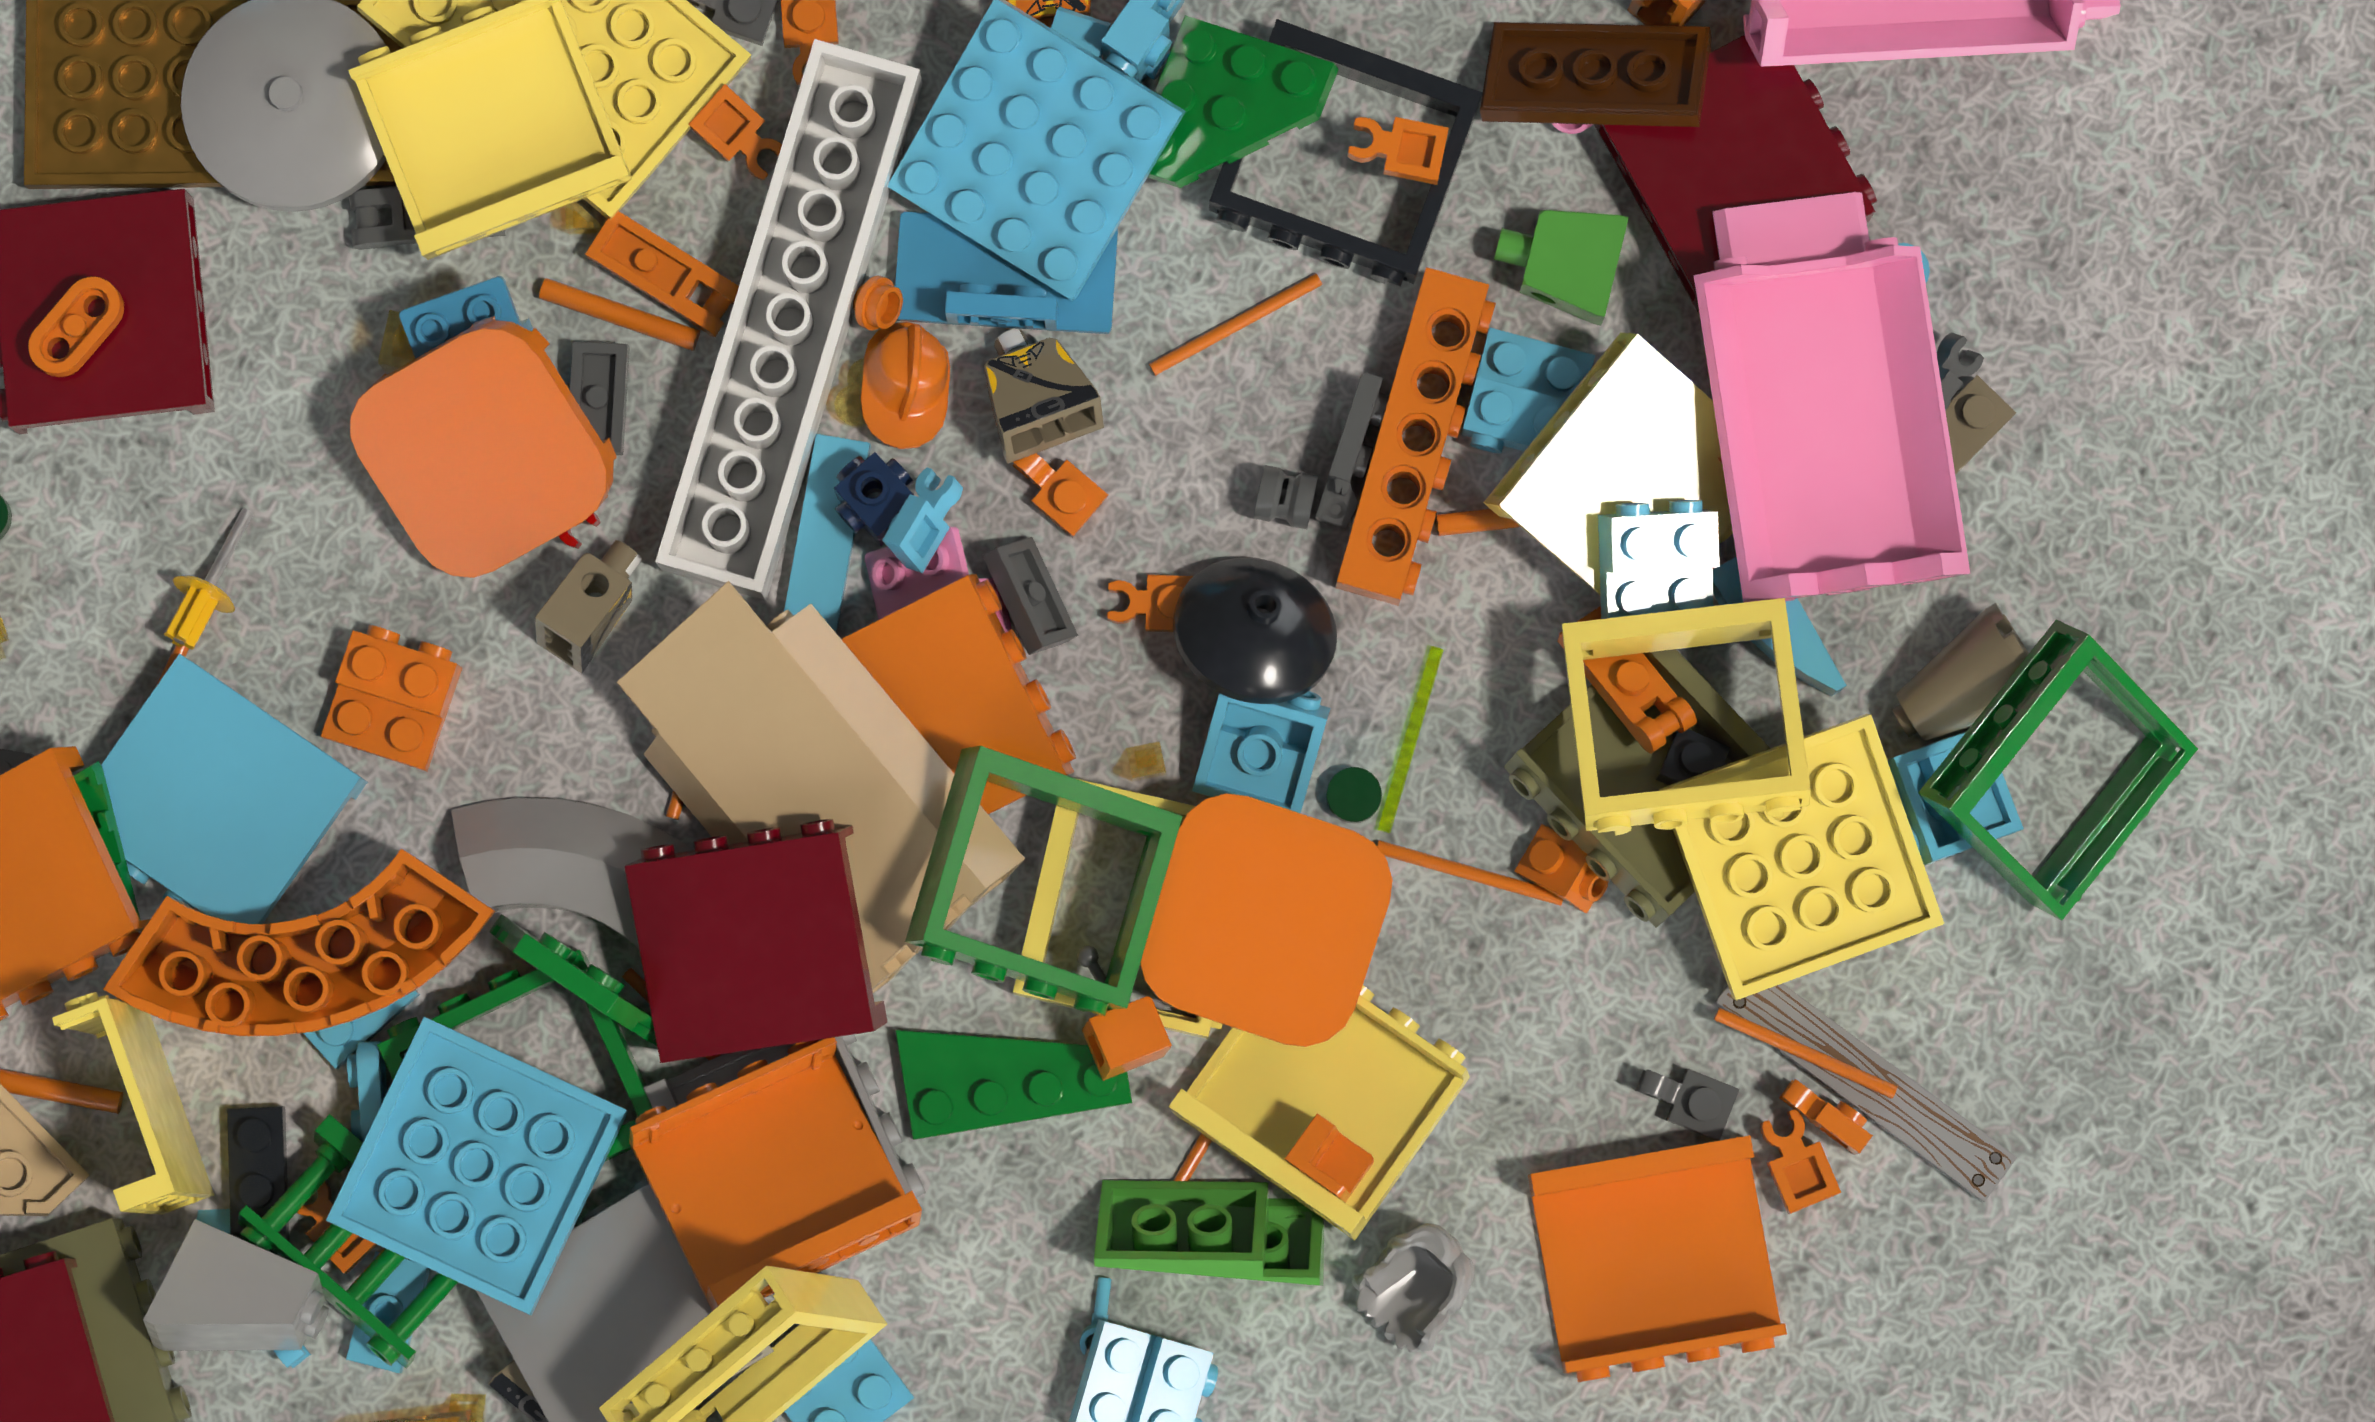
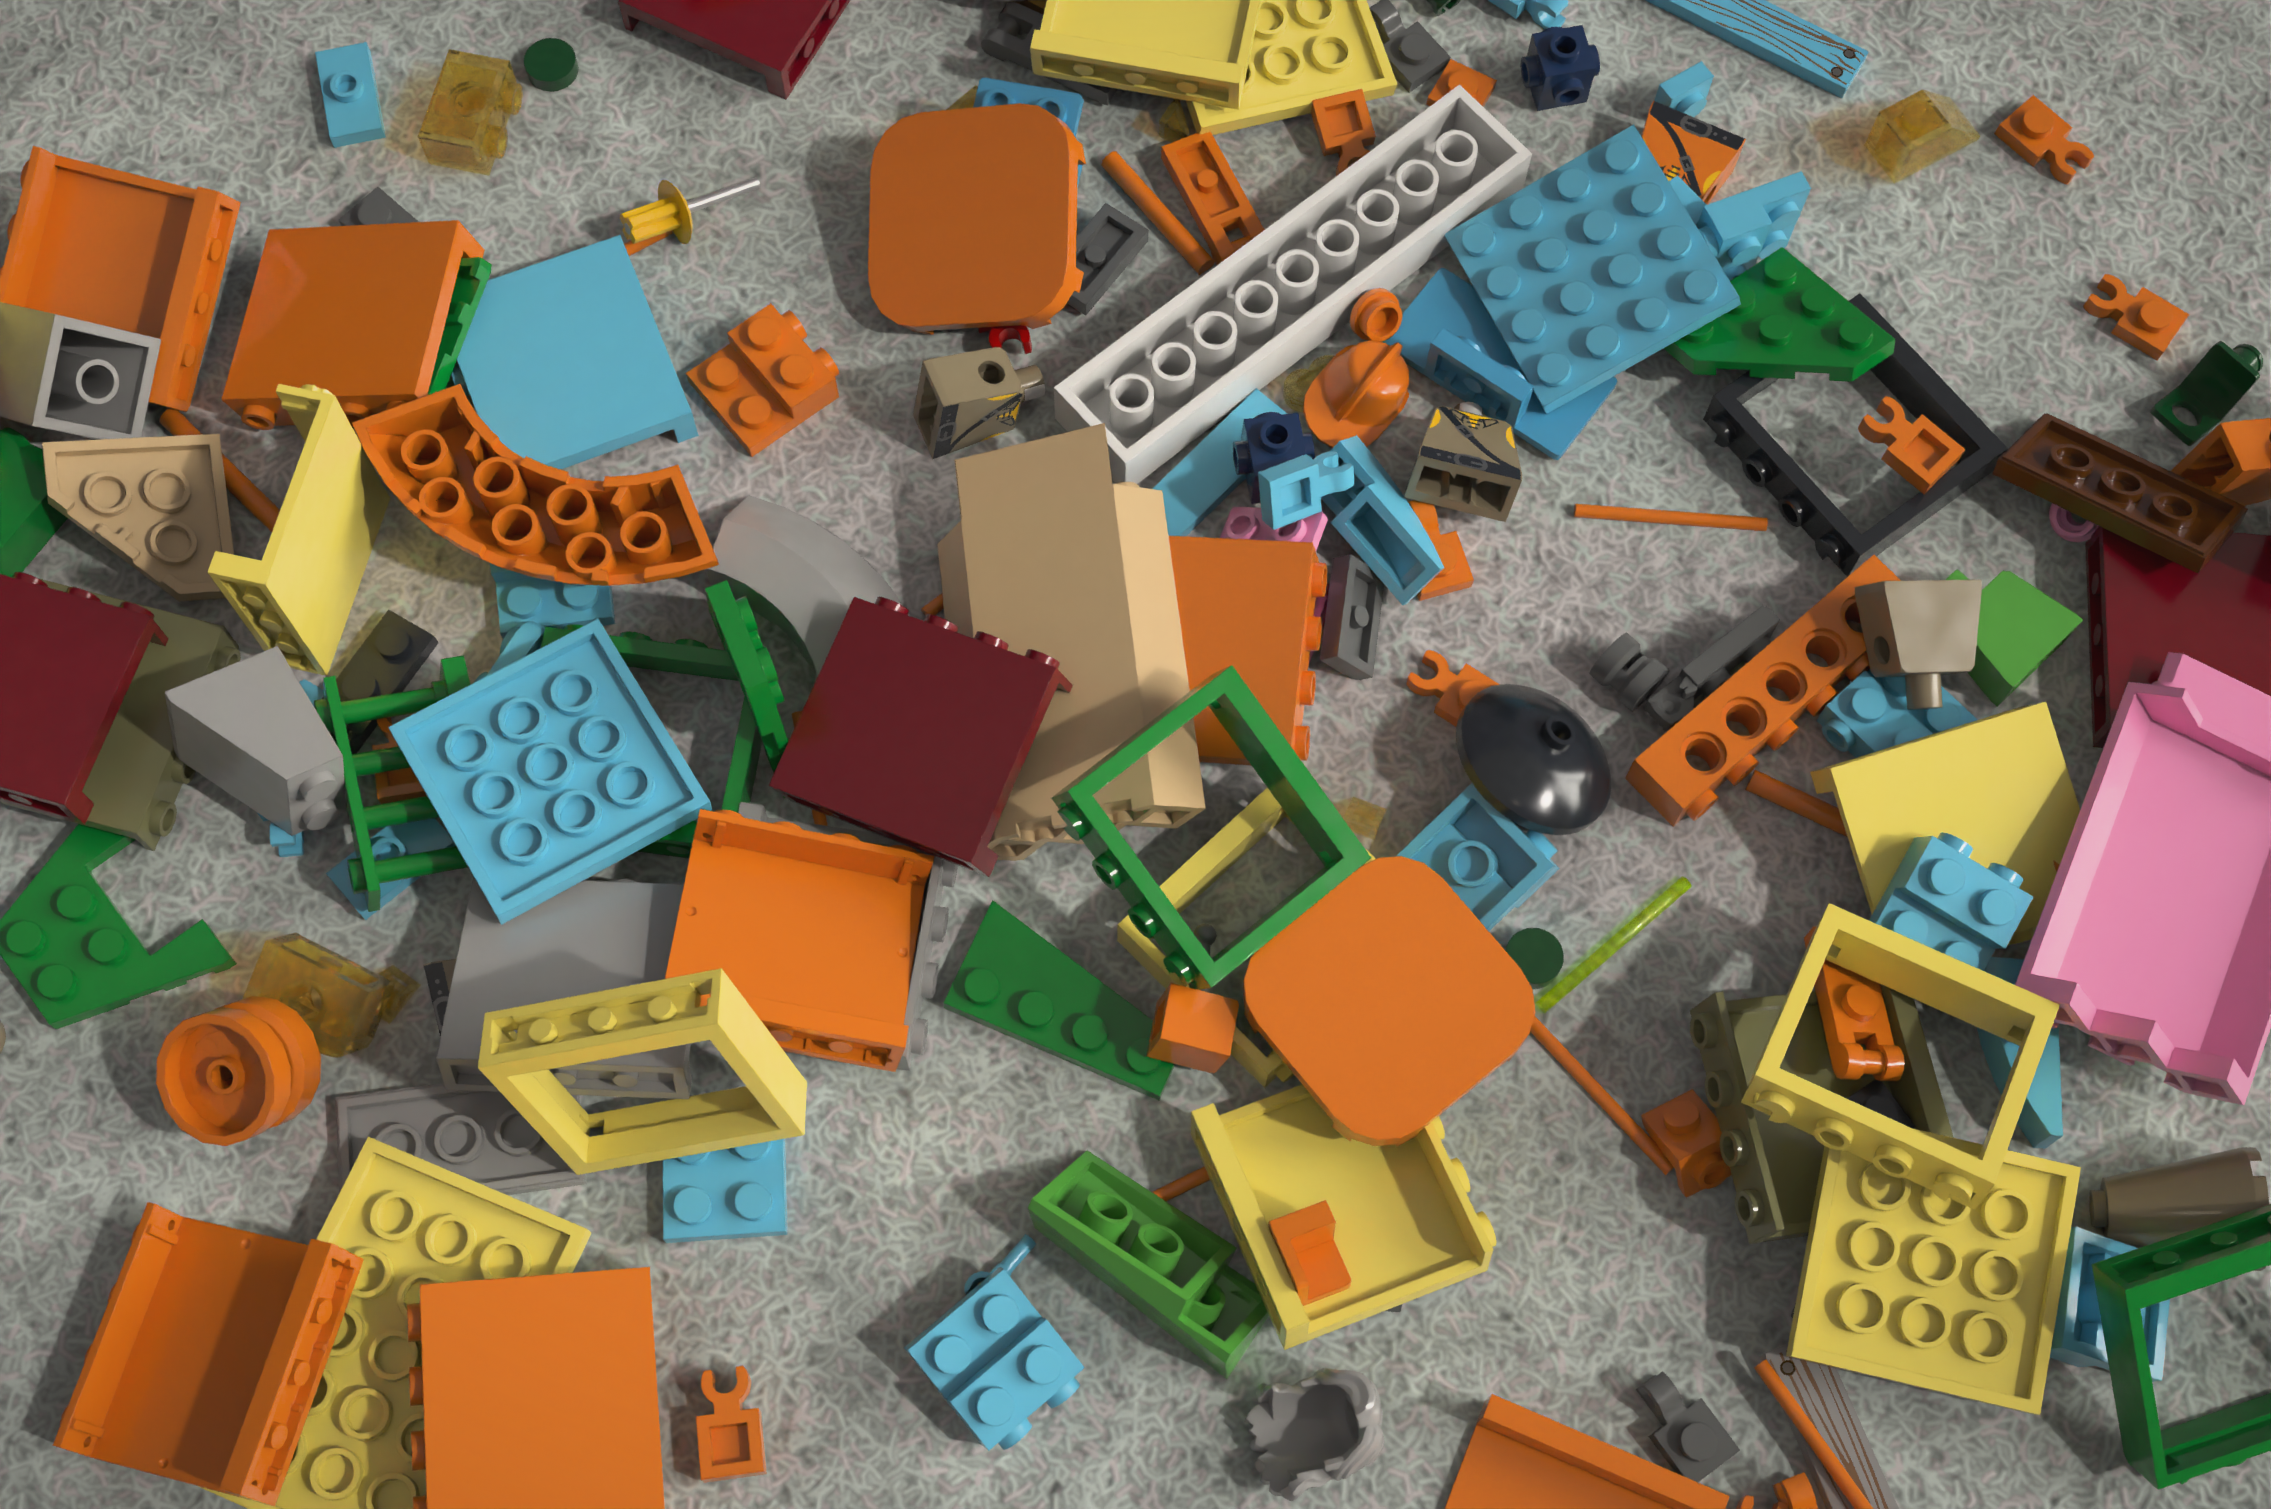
camera: 30 degrees right, 15 degrees down
(1001, 496) = (1382, 524): none -> medium azure slope
(1504, 322) = (1920, 632): none -> torso

